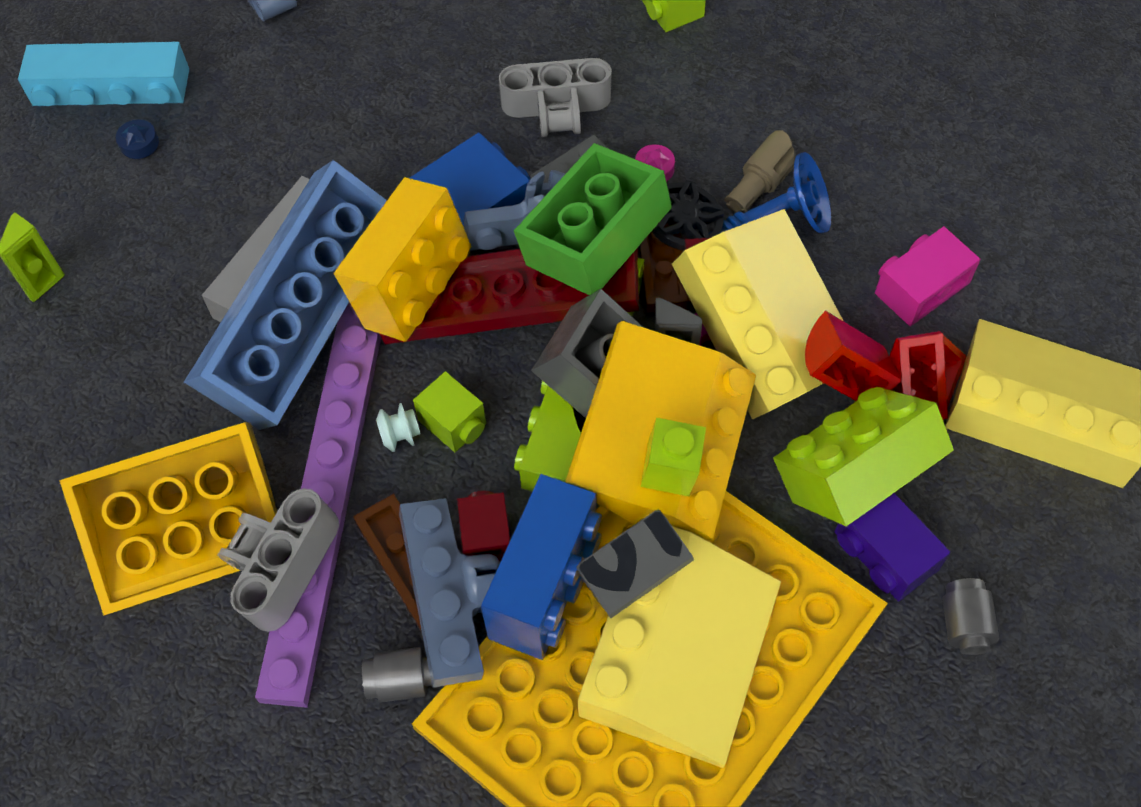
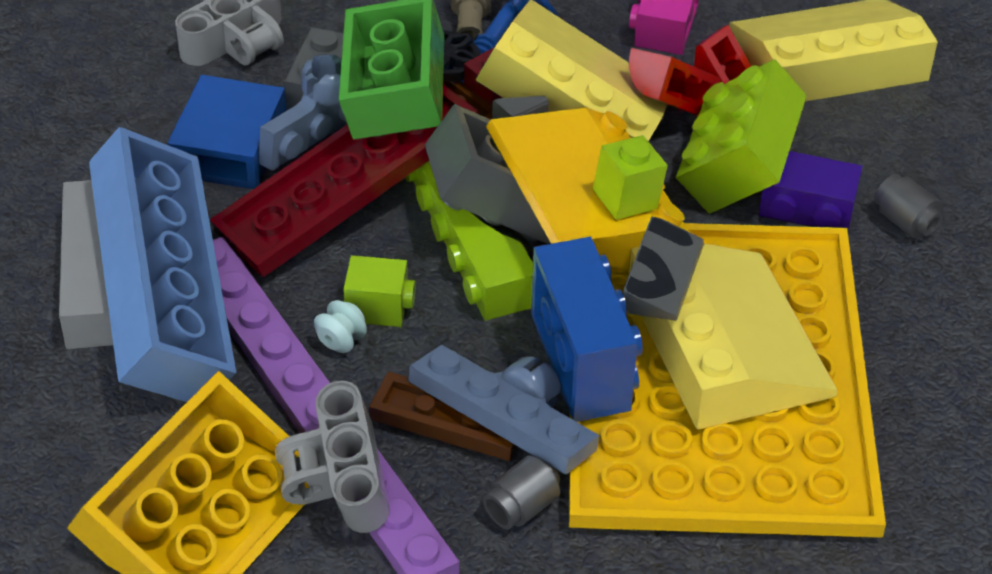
camera: 40 degrees left, 15 degrees down
(404, 259) = (245, 182): yellow brick -> none
(484, 524) = (491, 343): dark red brick -> none

